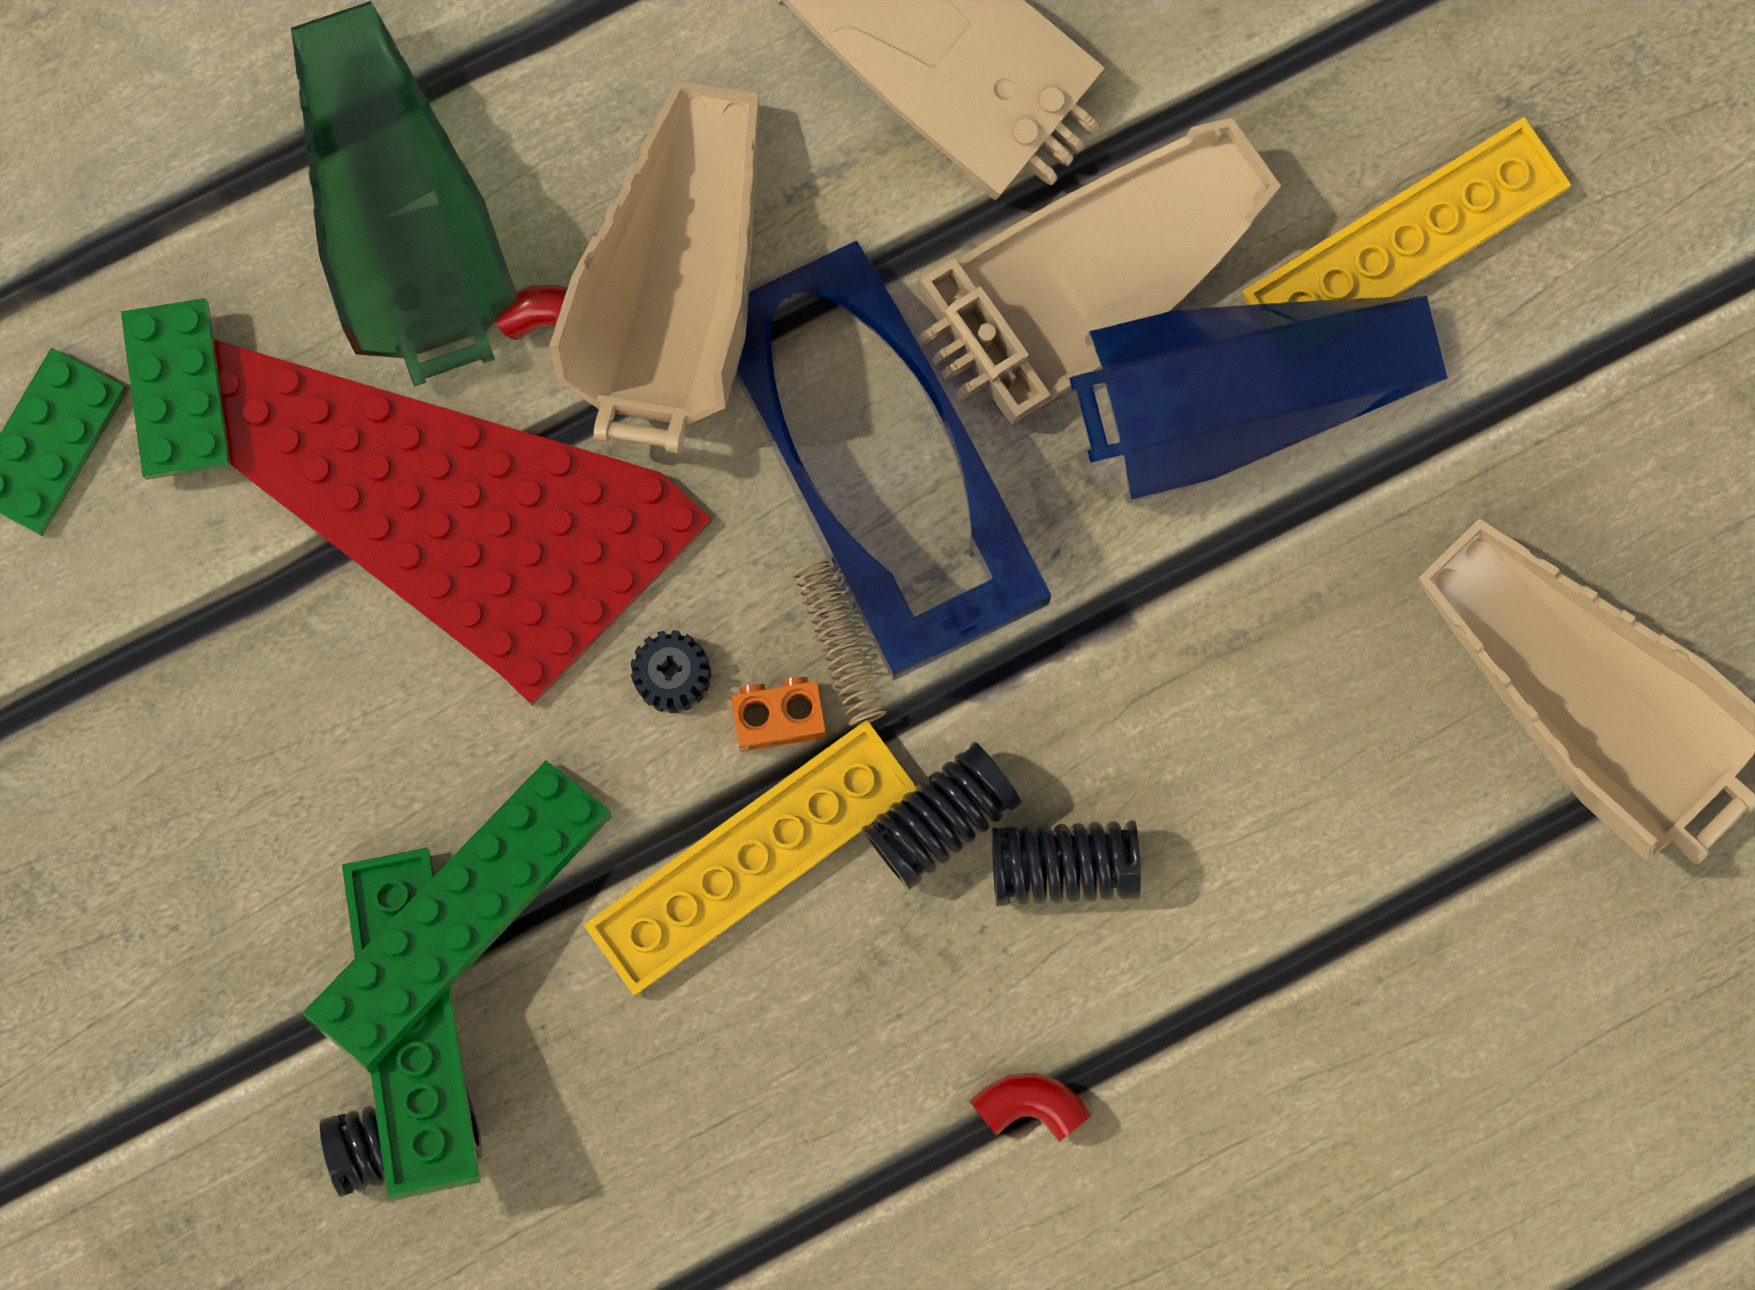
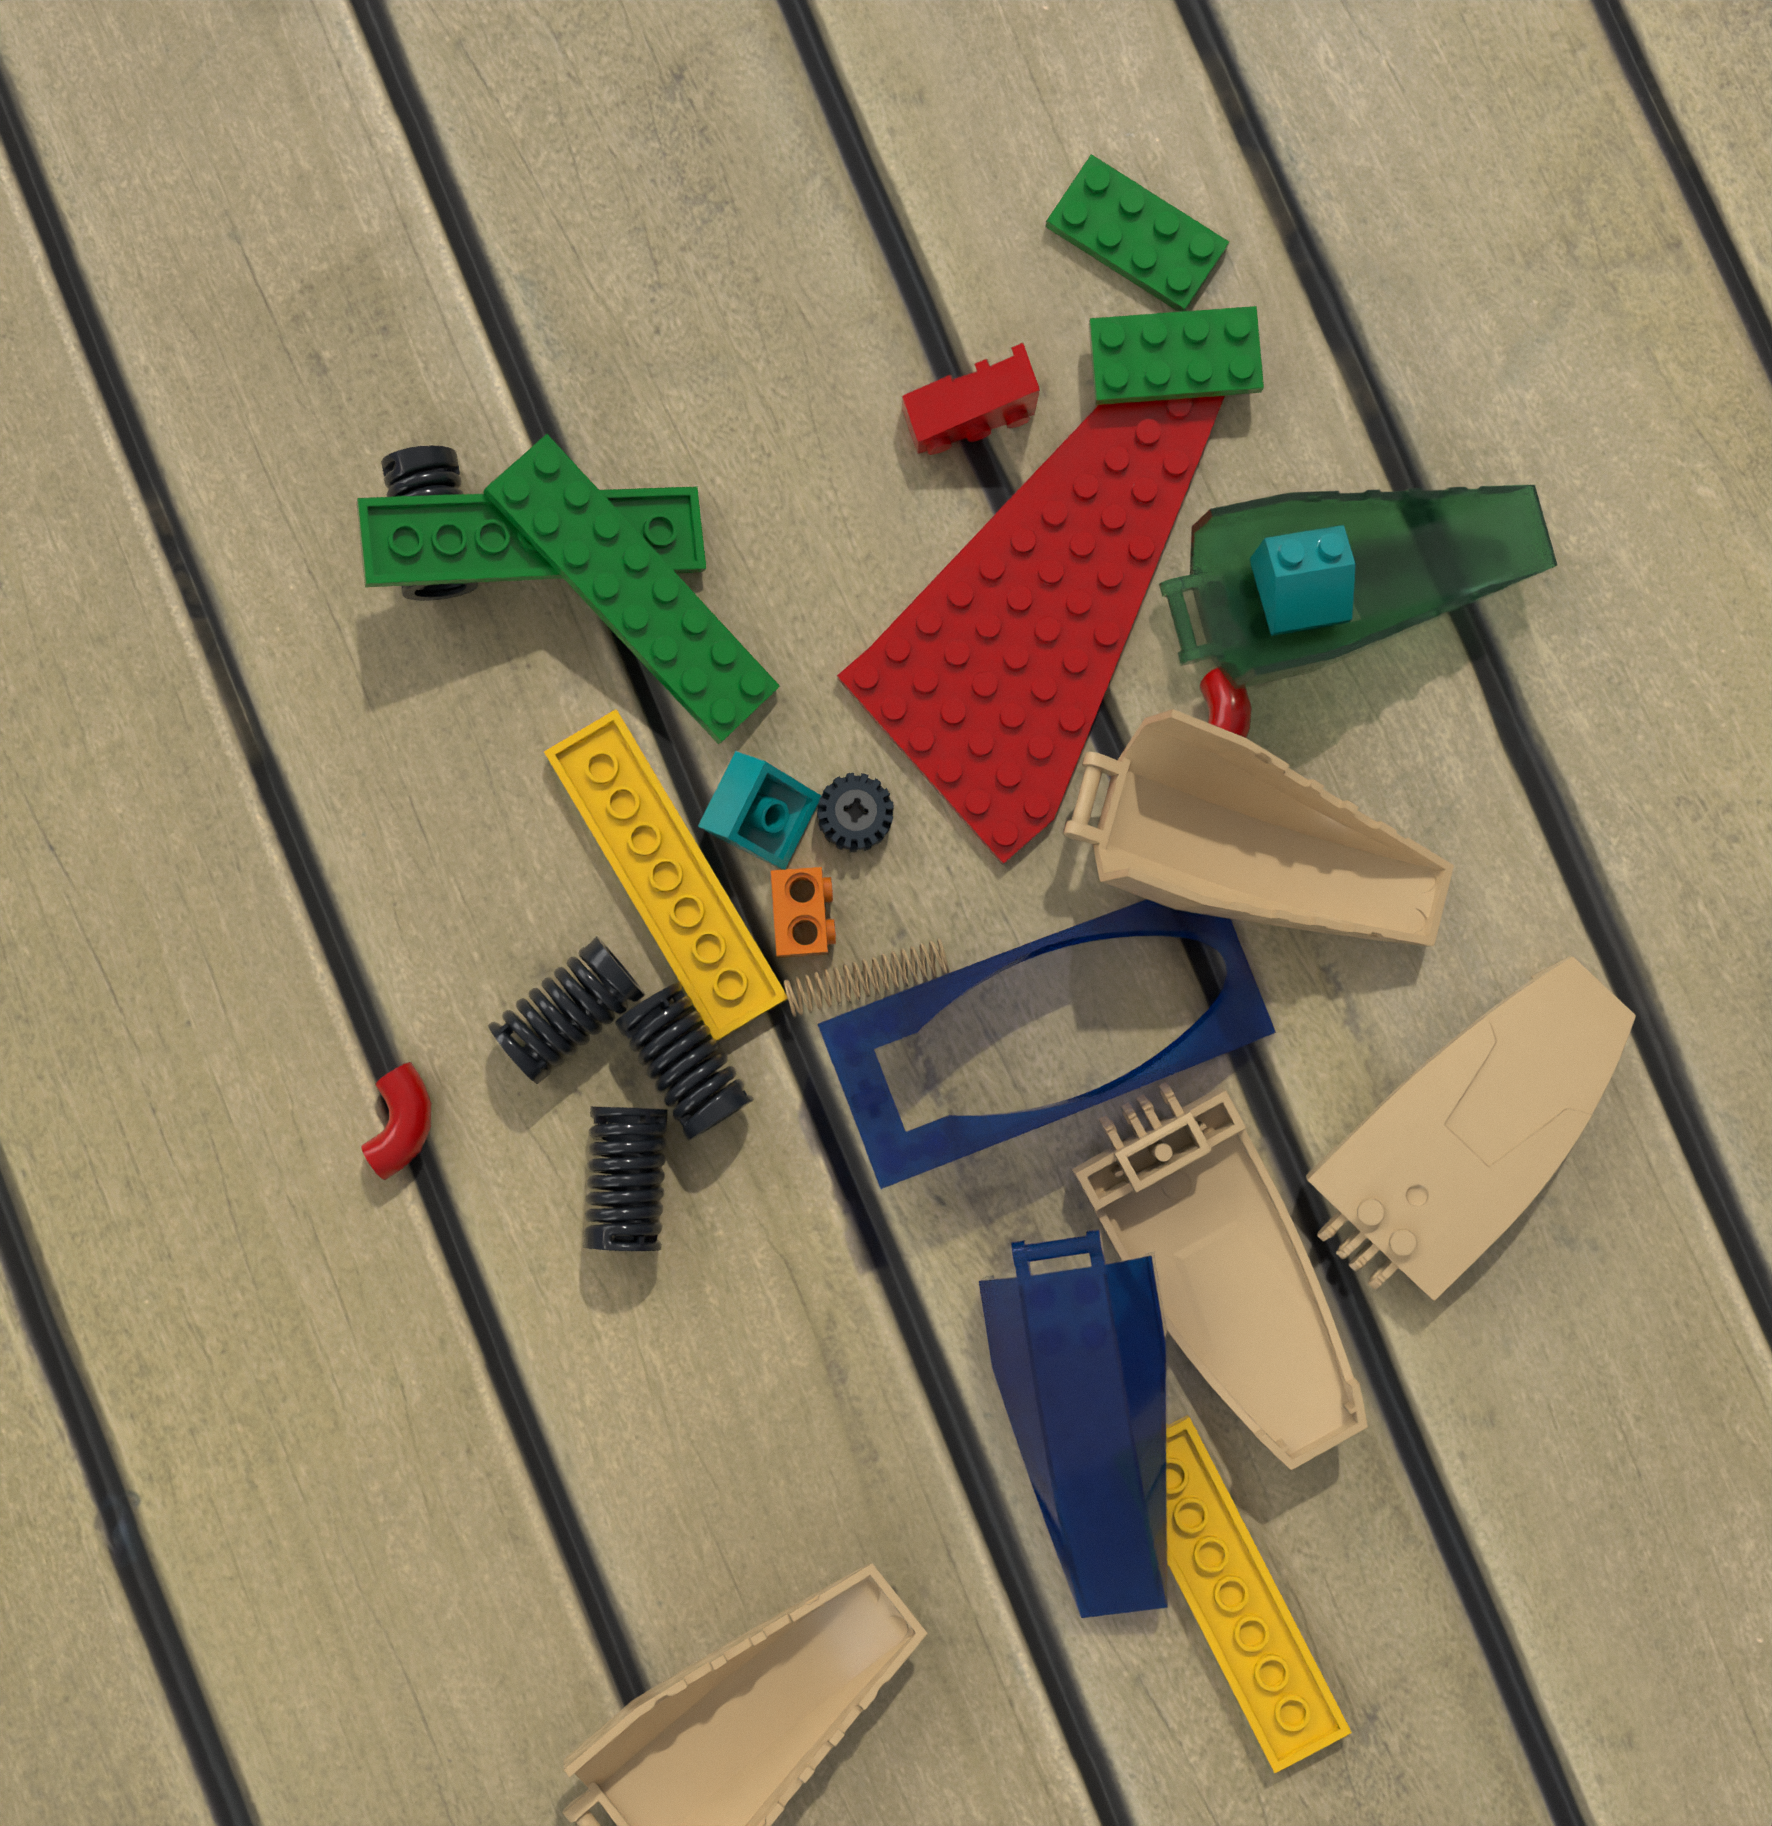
camera: 95 degrees right, 5 degrees up
(237, 588) = (972, 403): none -> red wedge
(401, 241) = (1305, 579): none -> teal slope
(676, 768) = (760, 810): none -> teal slope
(893, 950) = (578, 1019): none -> black piece

